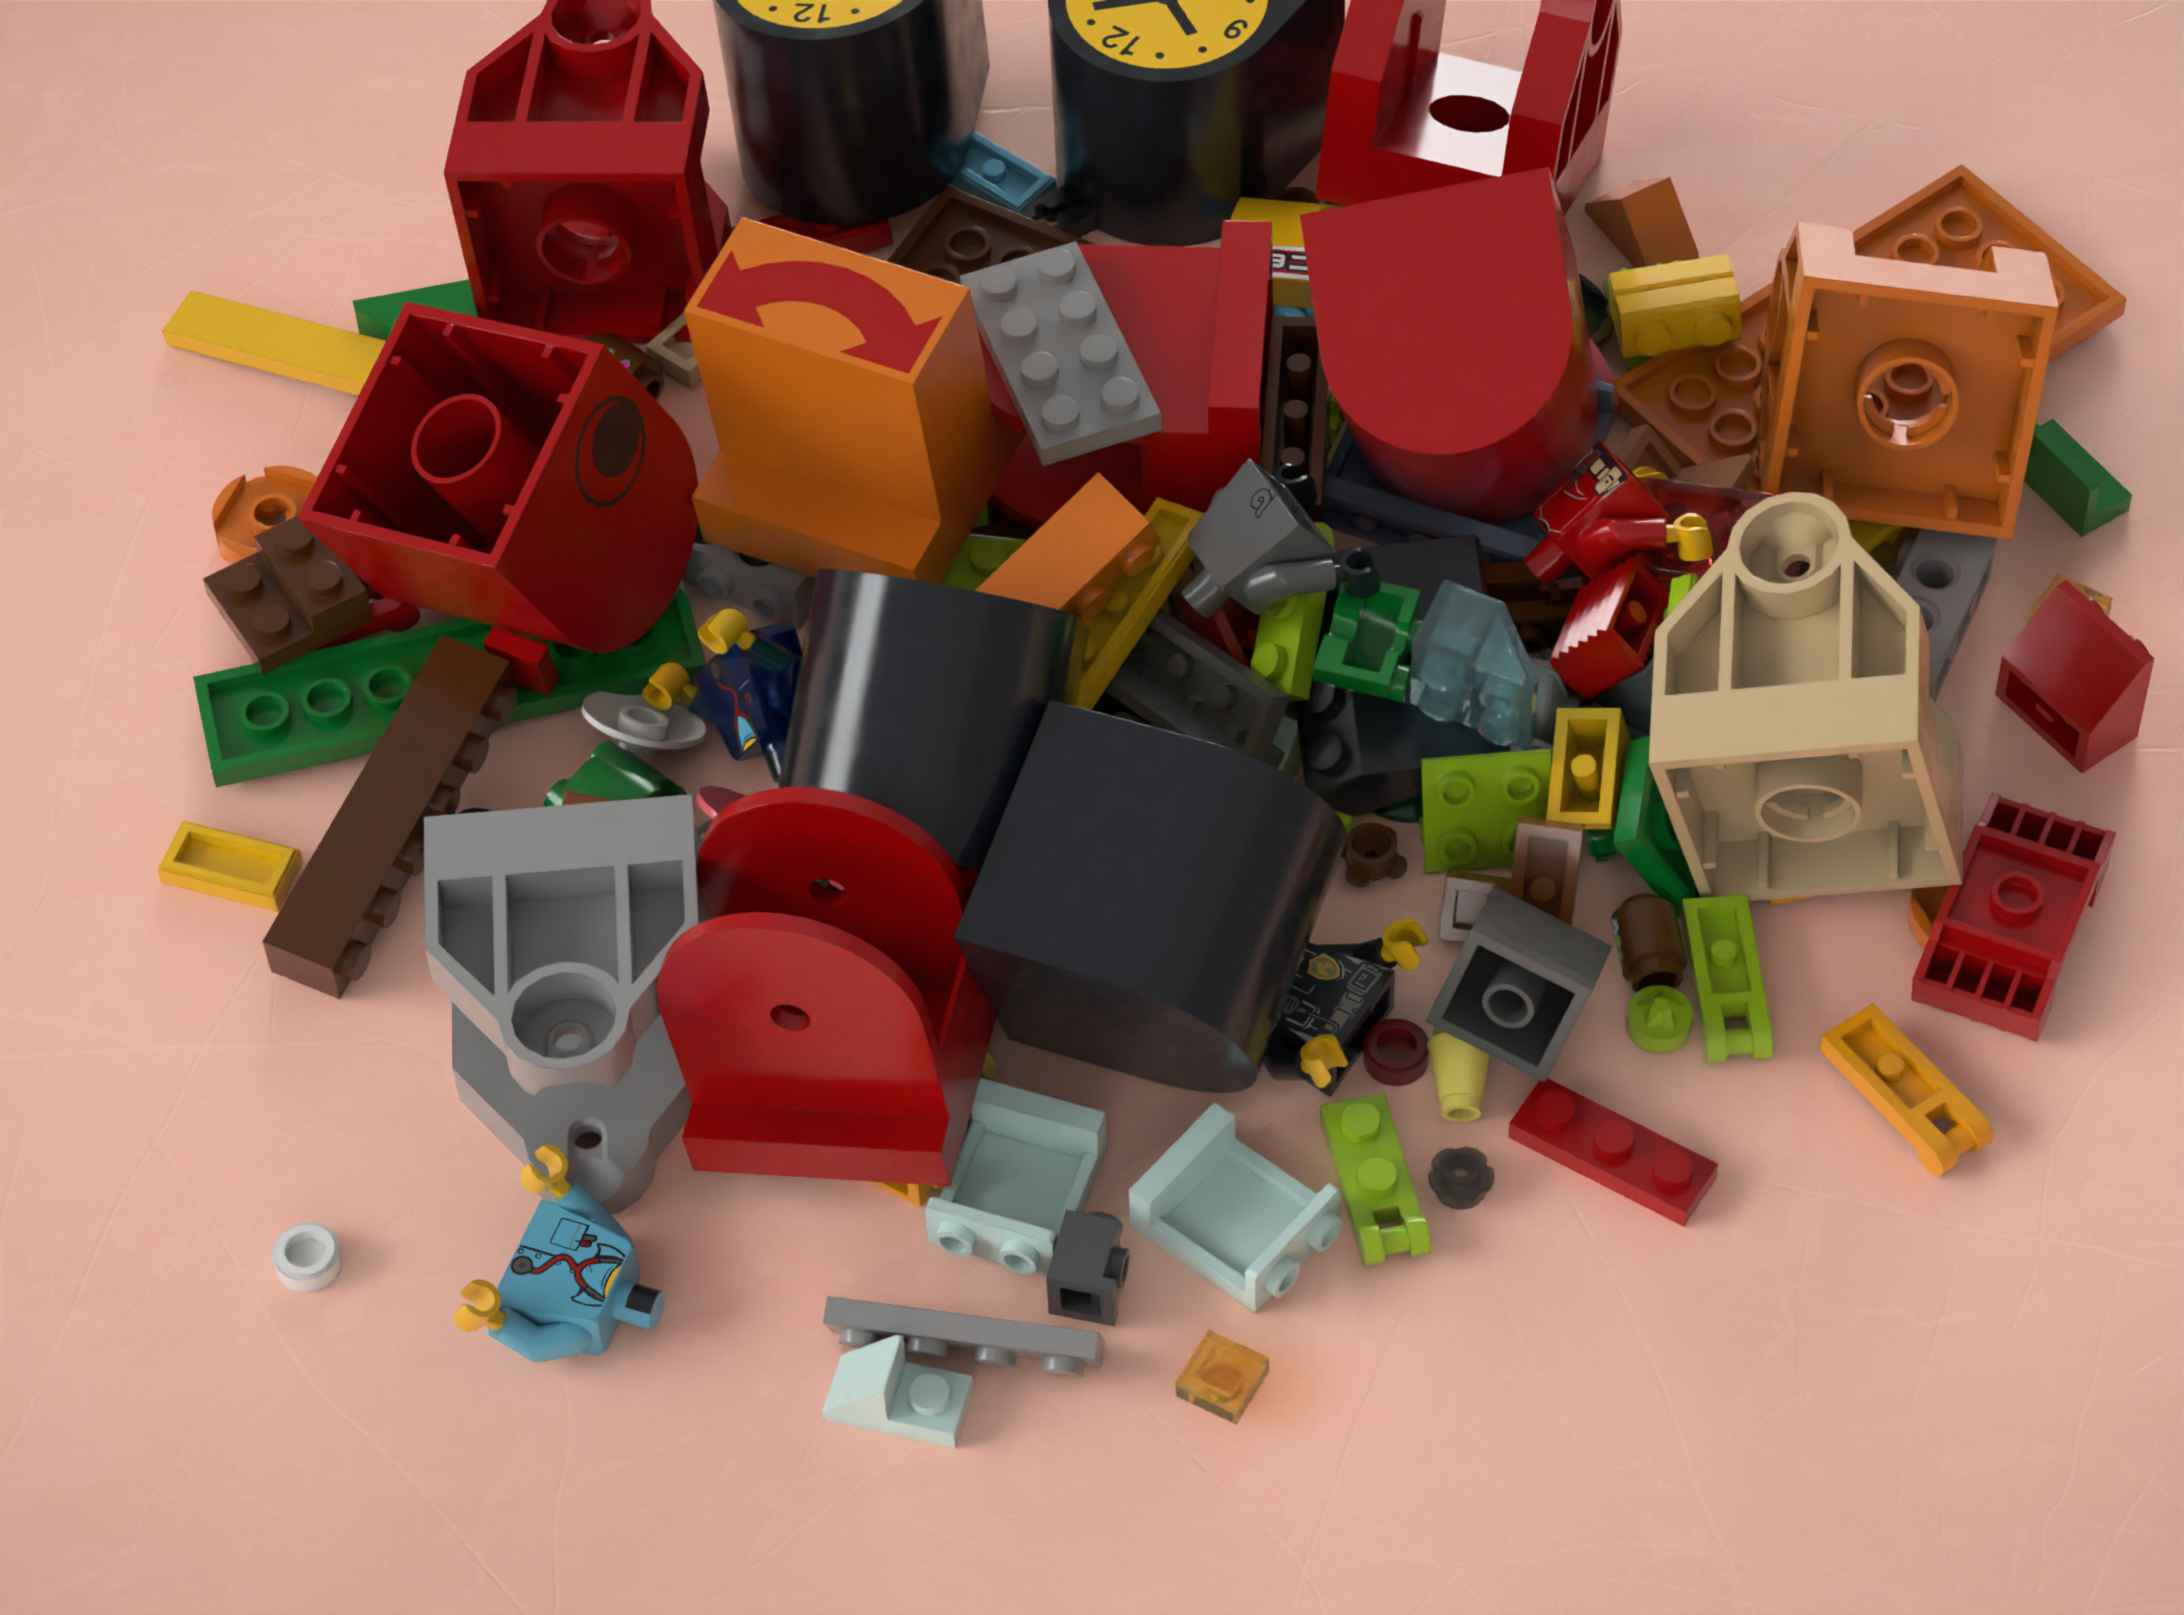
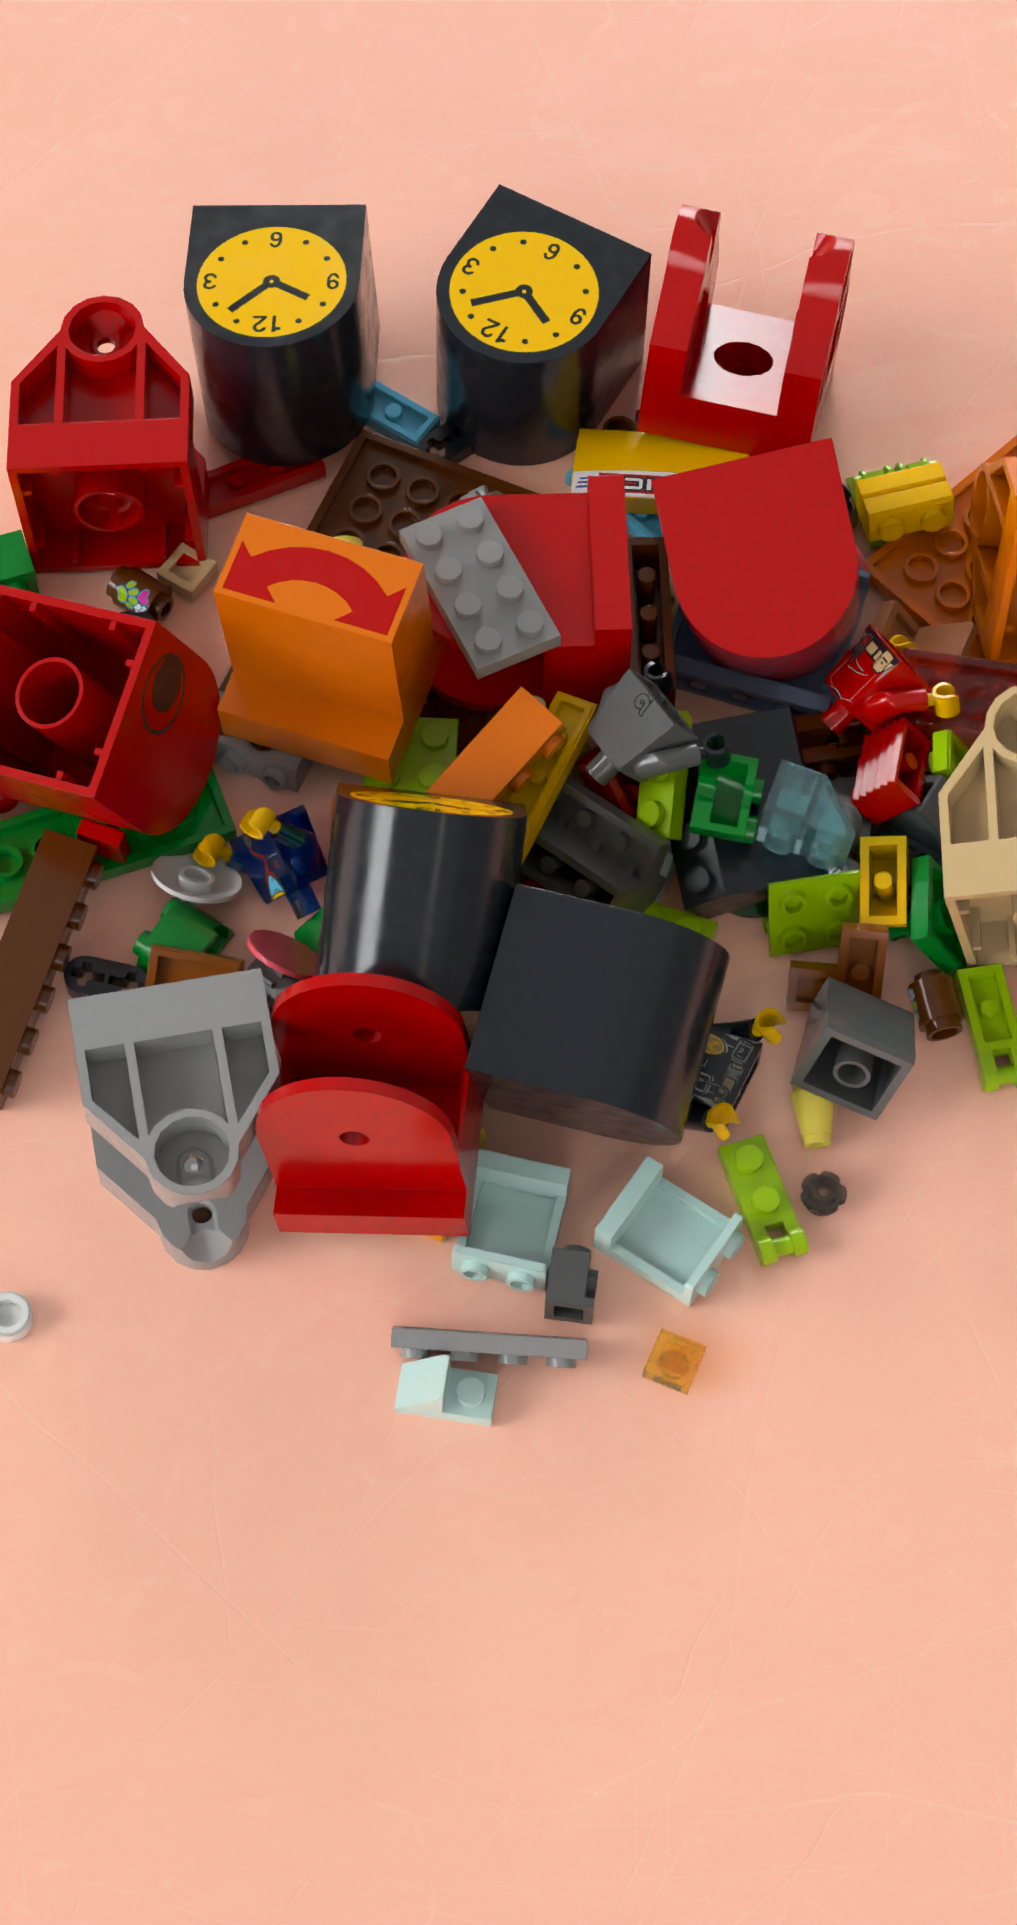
camera: 10 degrees left, 10 degrees up
(567, 1277) = (200, 1322): medium azure torso -> none
(1377, 841) = (737, 936): reddish brown plate -> none
(1396, 1052) = (766, 1099): dark red tile -> none
(1613, 1151) = (926, 1165): red plate -> none
(1645, 222) = (871, 430): orange slope -> none
(1659, 1018) = (948, 1061): lime tile -> none

